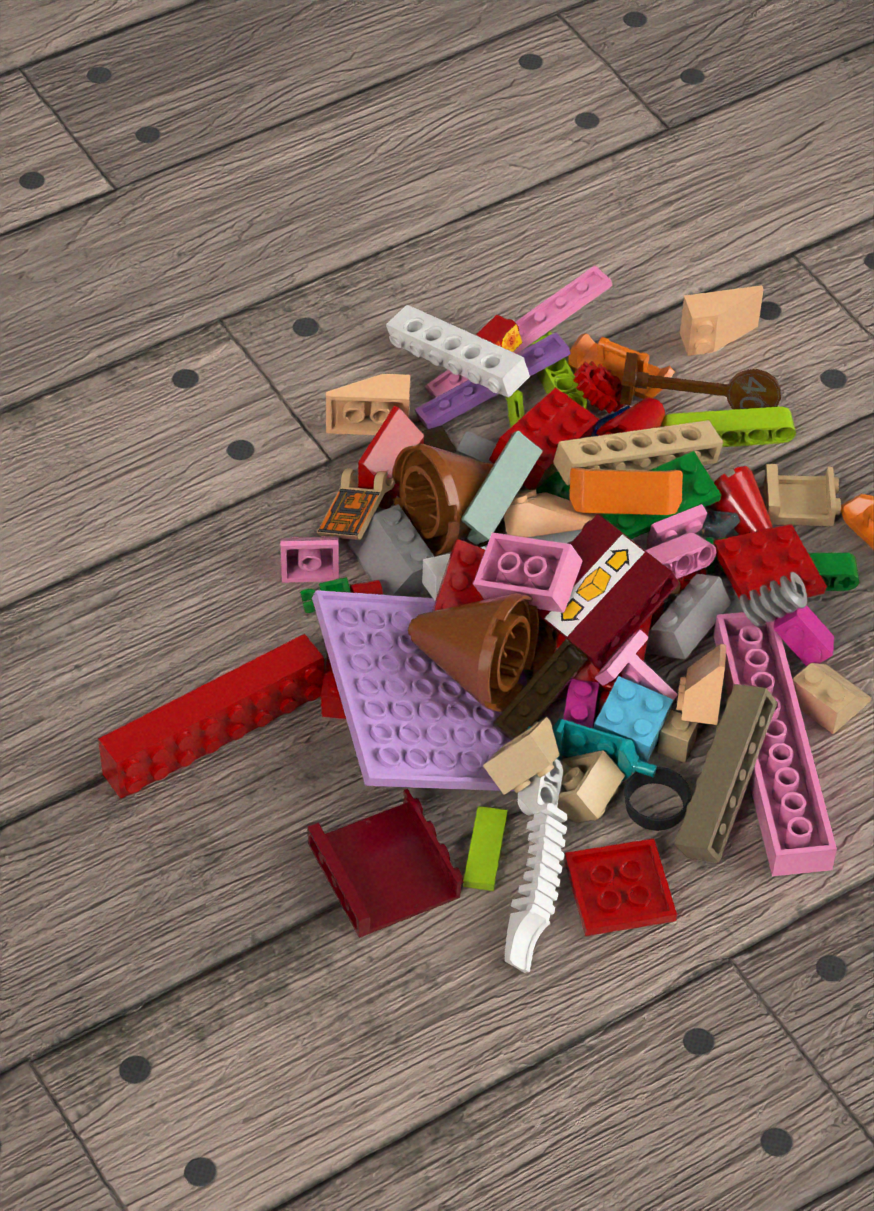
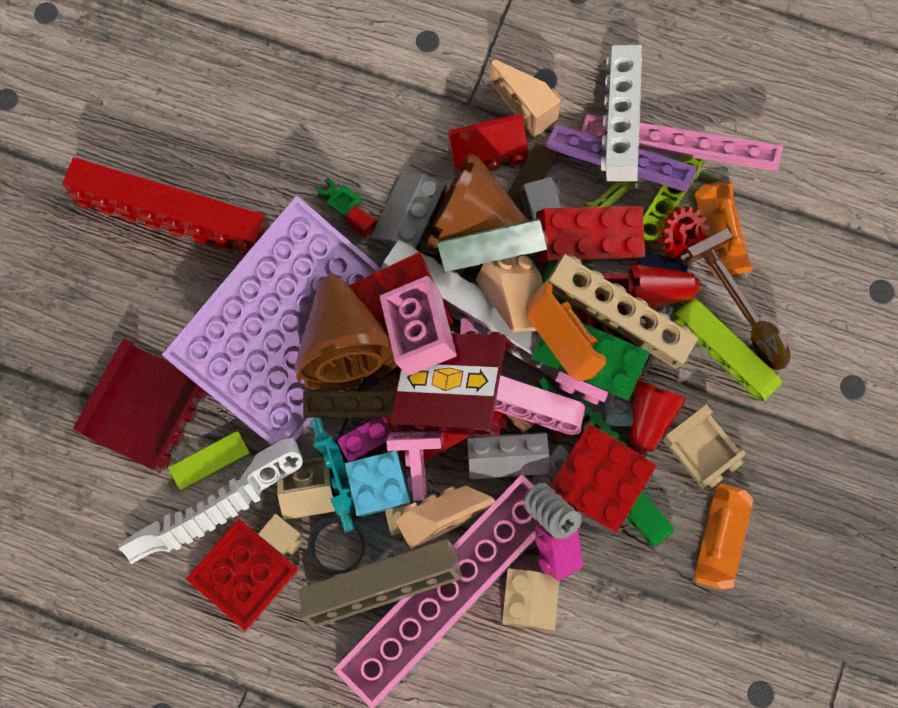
camera: 55 degrees right, 25 degrees up
(309, 559) = (358, 159): bright pink slope -> none
(354, 506) = (424, 155): flag -> none
(502, 333) = (655, 133): red brick -> none
(523, 758) = (276, 437): tan slope -> none
(609, 829) = (281, 536): none -> tan brick
(719, 318) = (824, 266): light nougat slope -> none

